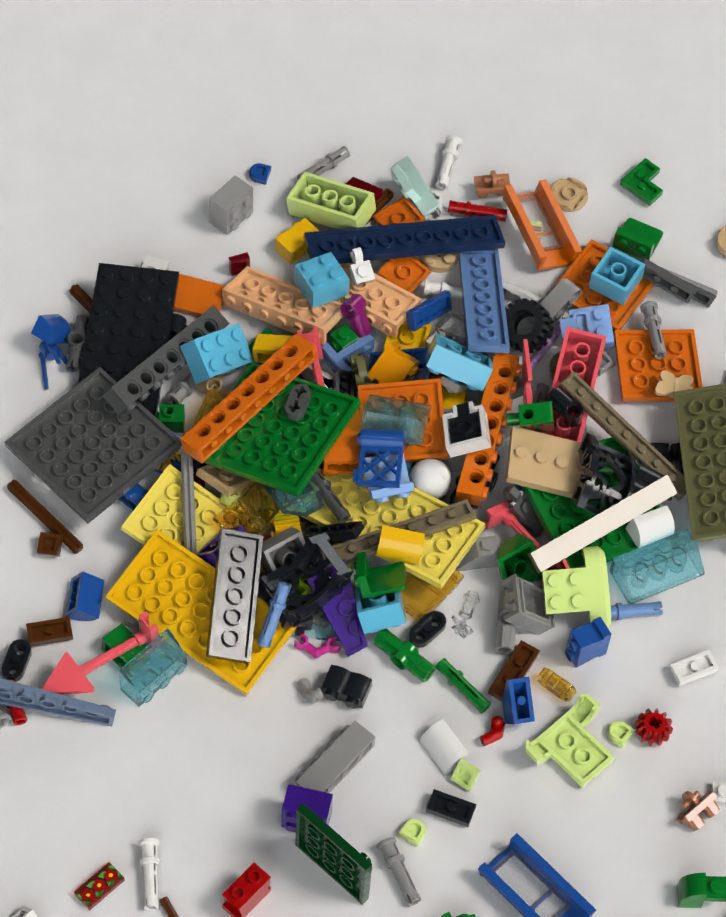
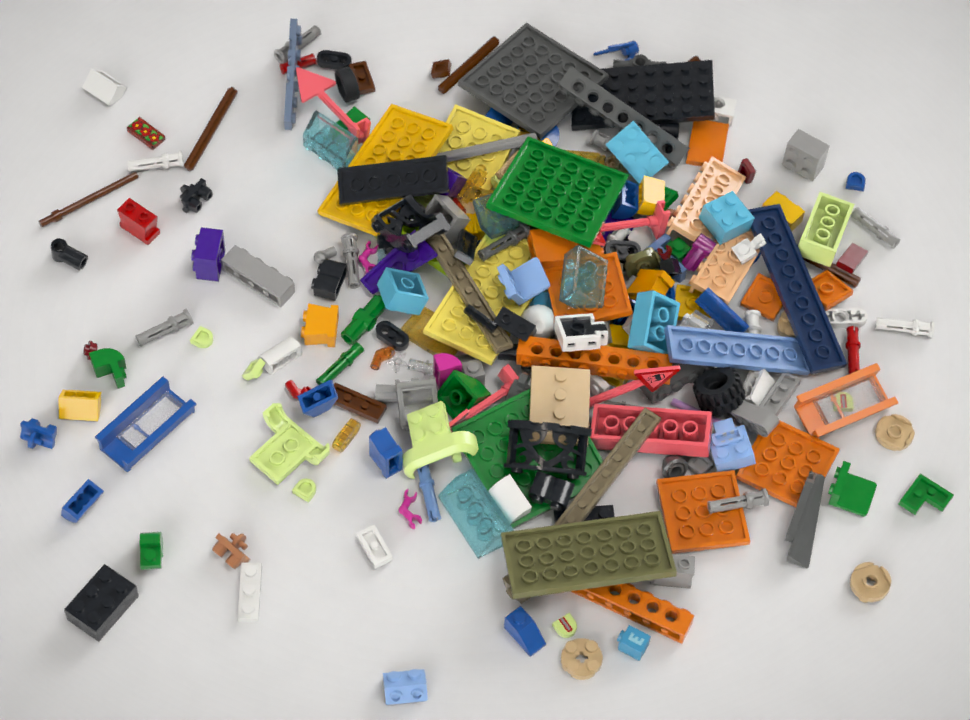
camera: 85 degrees right, 0 degrees up
(52, 329) = (644, 41): blue brick -> none
(65, 639) = (347, 84): none -> black tyre
(84, 597) = (396, 95): blue brick -> none
(103, 808) = (210, 129): none -> reddish brown axle
(172, 416) = (575, 136): green brick -> none
(208, 833) = (192, 194): none -> black hips
(248, 398) = (583, 168): orange brick -> none
(272, 619) = (382, 205): medium blue pin -> none
(294, 400) = (582, 200): dark grey beam -> none
(310, 662) = (351, 252): none -> light grey pin
(333, 854) = (161, 264): dark green plate -> none
(369, 346) = (669, 264): none -> black piece
(380, 579) = (423, 278): green bracket -> none
(385, 443) = (552, 267): blue piece -> none
(400, 544) = (455, 291): yellow brick -> none
(409, 700) = (320, 325): none -> light orange hips
(414, 186) = (865, 292): light aqua bracket -> none
(438, 522) = (480, 318): none -> black axle
(448, 491) = (515, 324): none -> black bracket
(451, 643) = (381, 355): none -> clear orange arm
(451, 808) = (223, 361): black plate -> none
(487, 574) = (443, 366): none -> dark pink brick
(491, 184) = (886, 360): nougat hips -> none
(527, 278) = (780, 393): none -> light grey plate
(540, 414) = (602, 381): green torso -> none
(564, 405) = (622, 415): black piece -> none
(602, 523) = (496, 446): tile -> none
(606, 383) = (674, 466): none -> dark grey brick
(616, 275) = (790, 462): medium azure brick -> none
(646, 637) = (403, 509): none -> dark pink arm
(653, 727) = (313, 519): red gear -> none
(671, 384) = (674, 516): tan animal -> none

